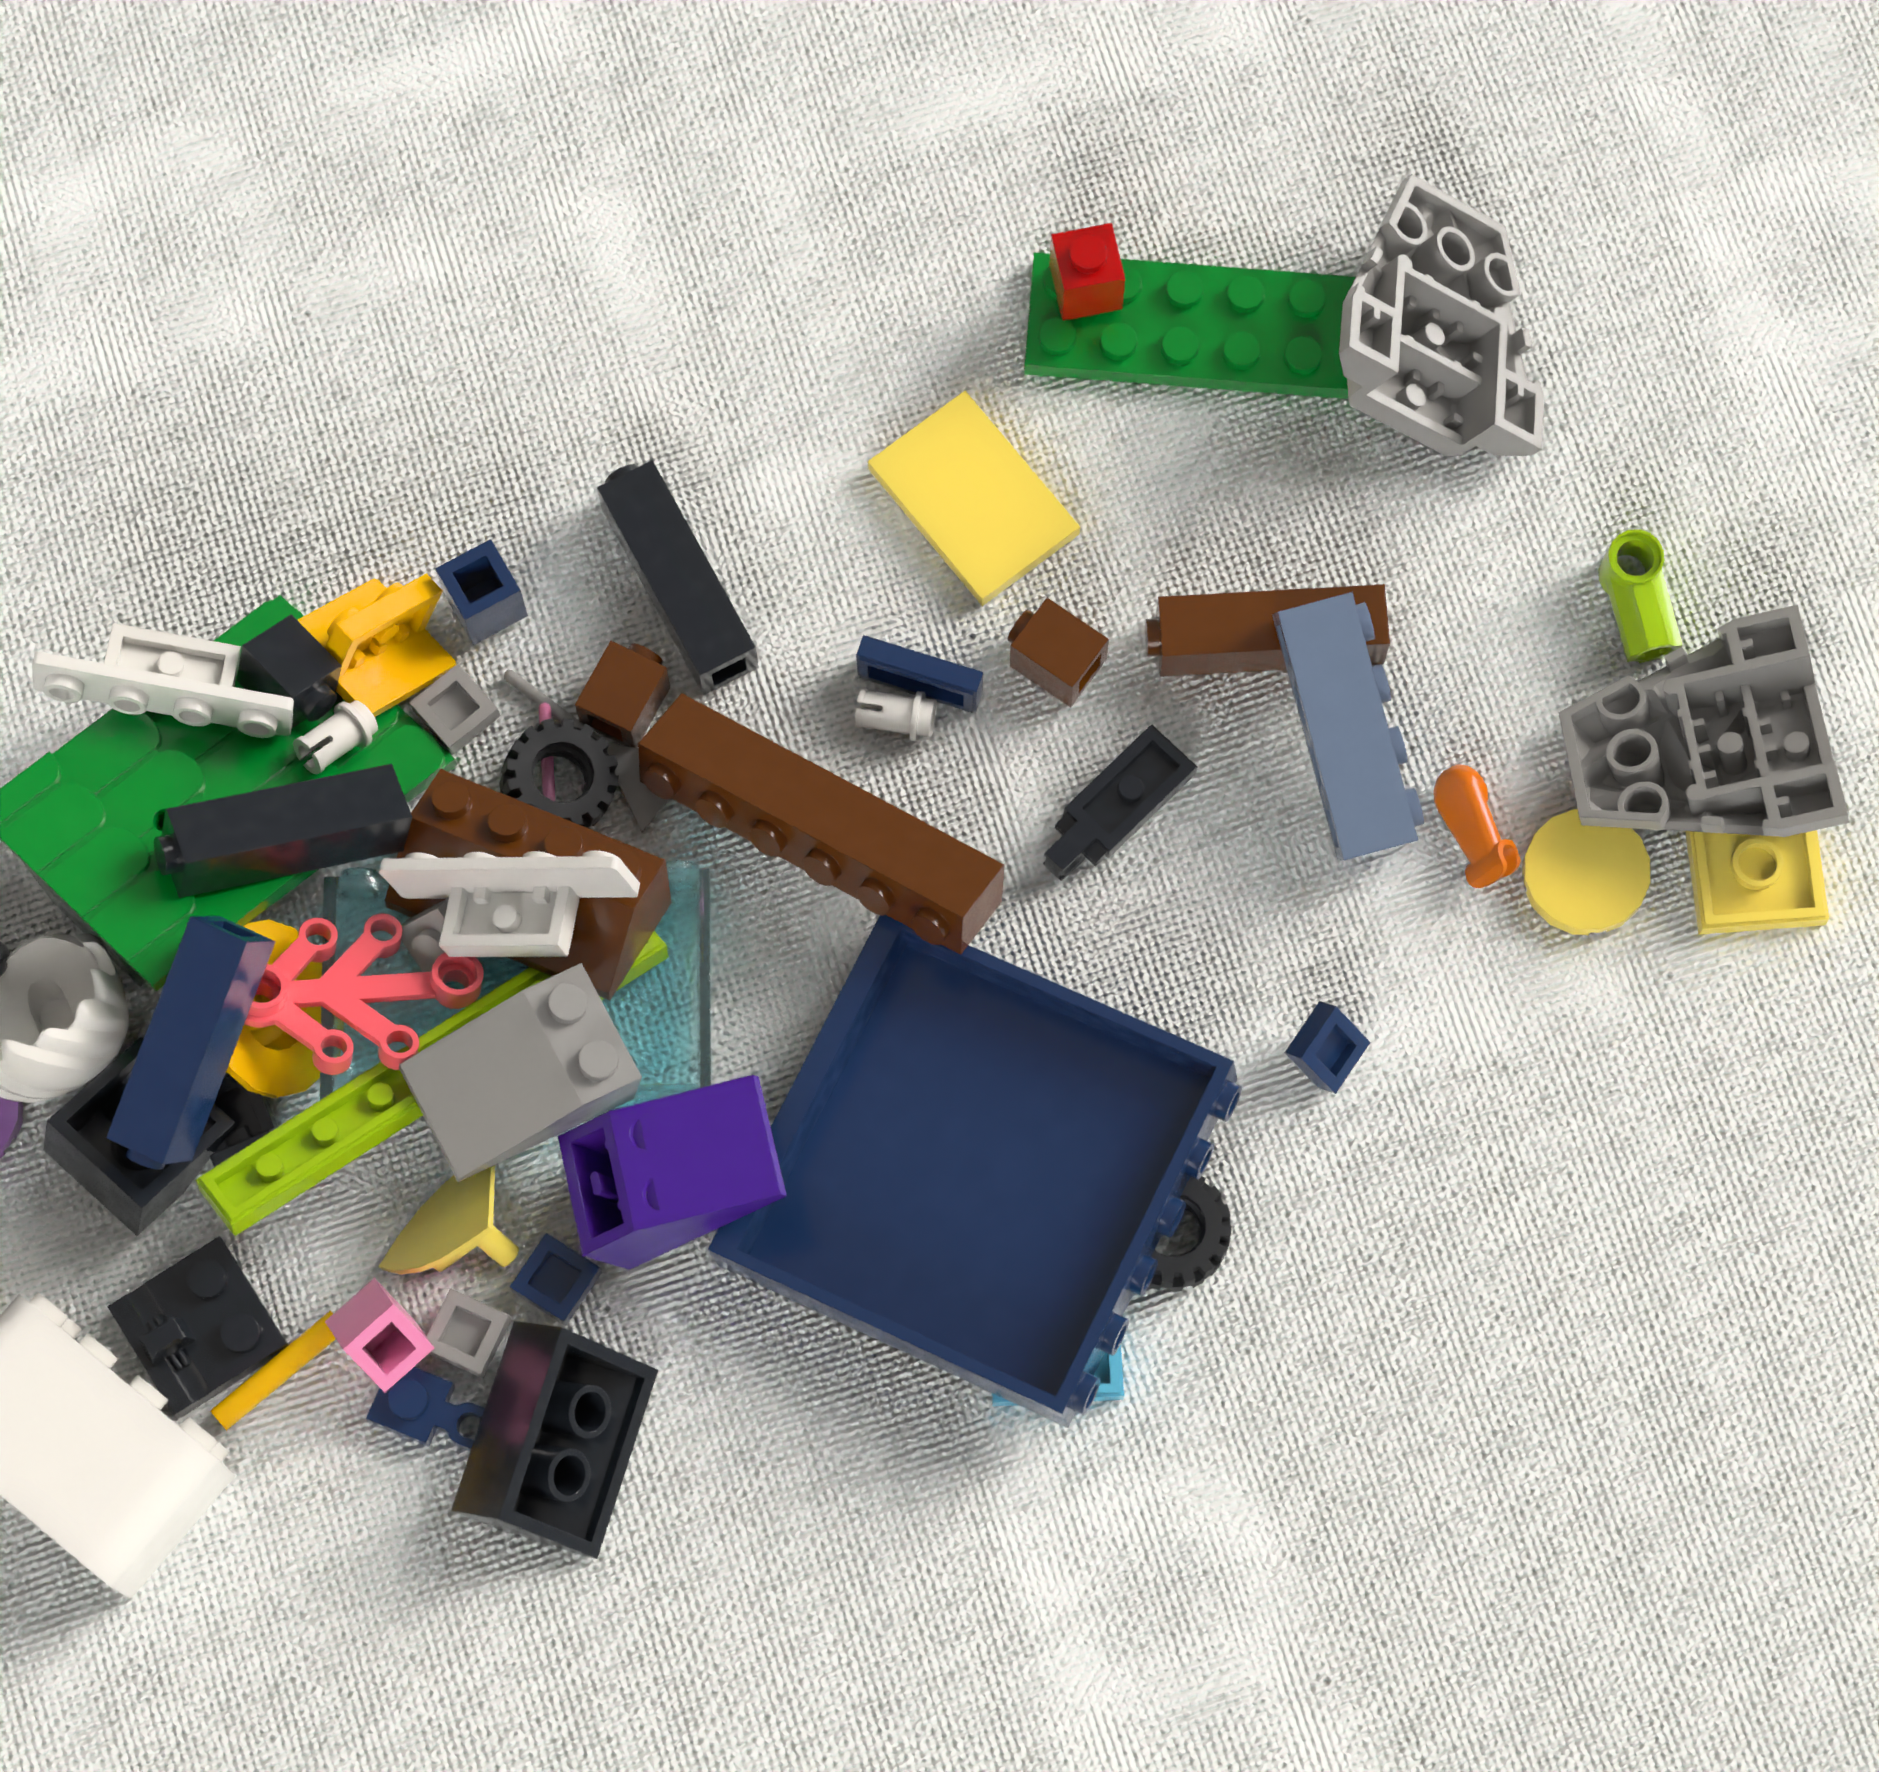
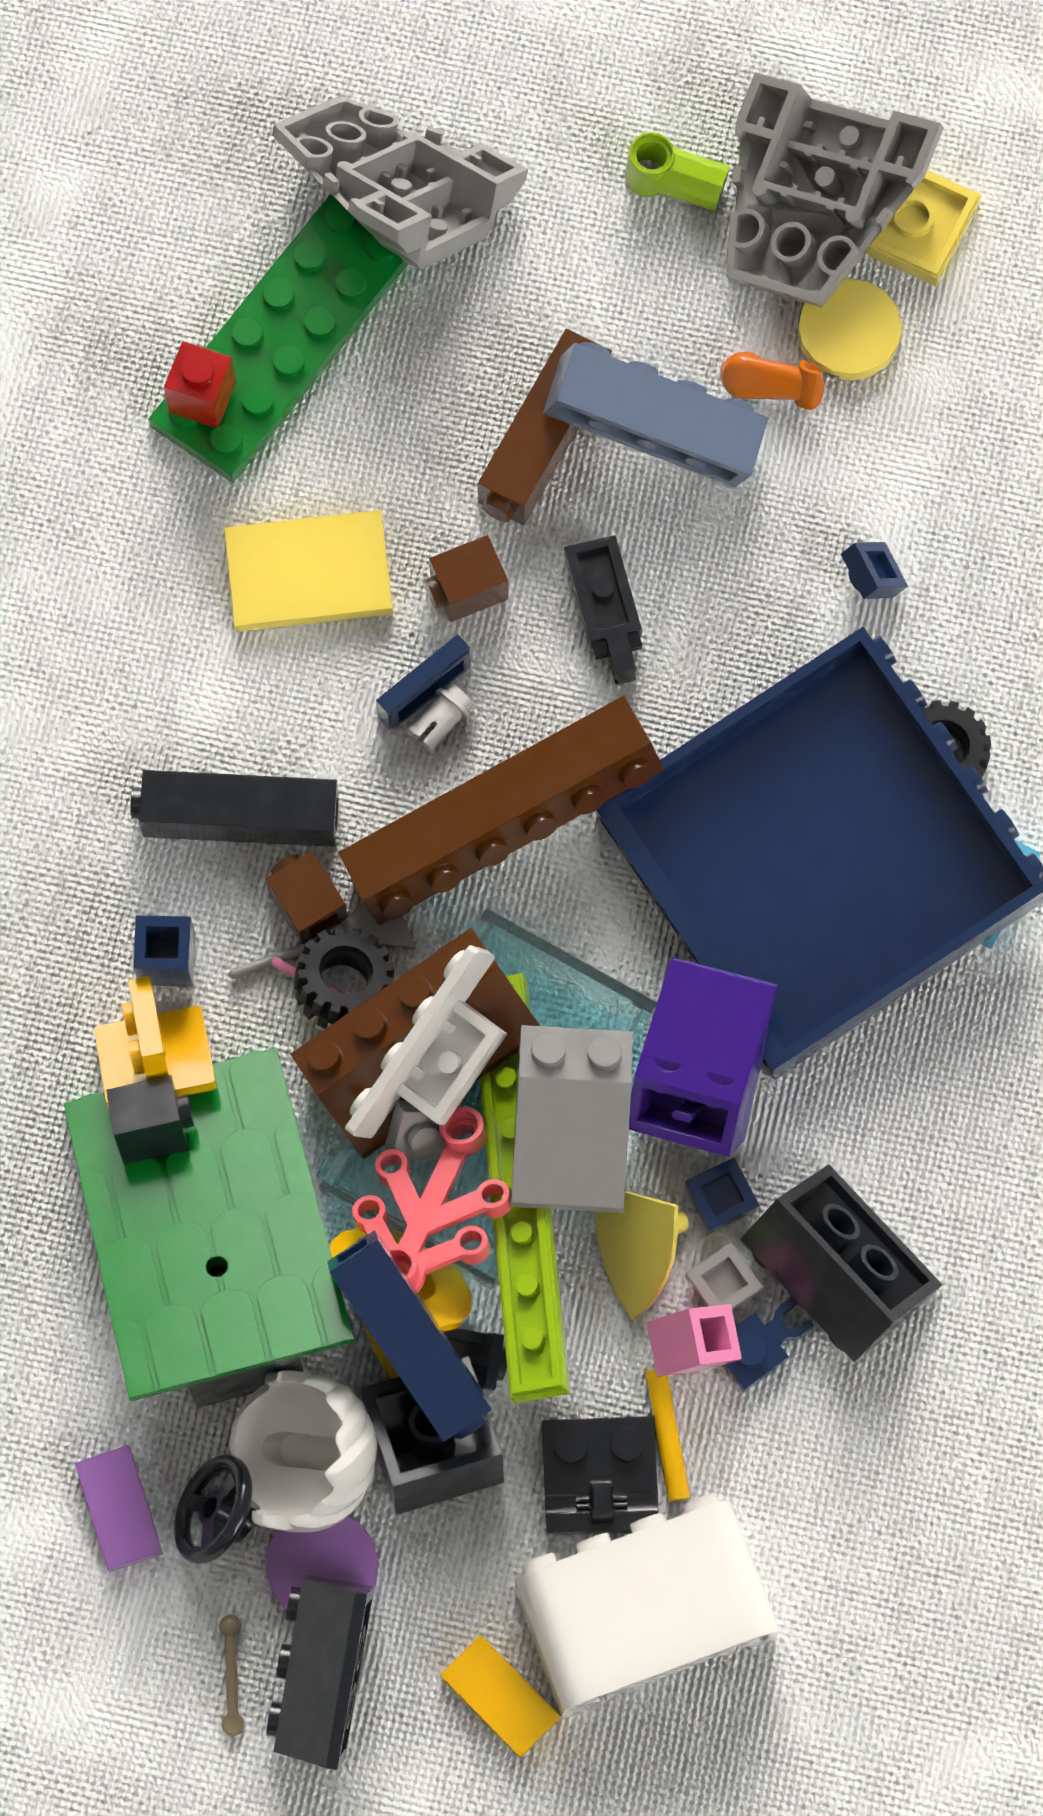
camera: 60 degrees left, 0 degrees up
(165, 676) = (100, 1202): white bracket -> none
(283, 830) = (283, 1182): black brick -> none
(348, 727) = (217, 1101): white pin -> none
(455, 709) = (238, 1025): light grey plate -> none

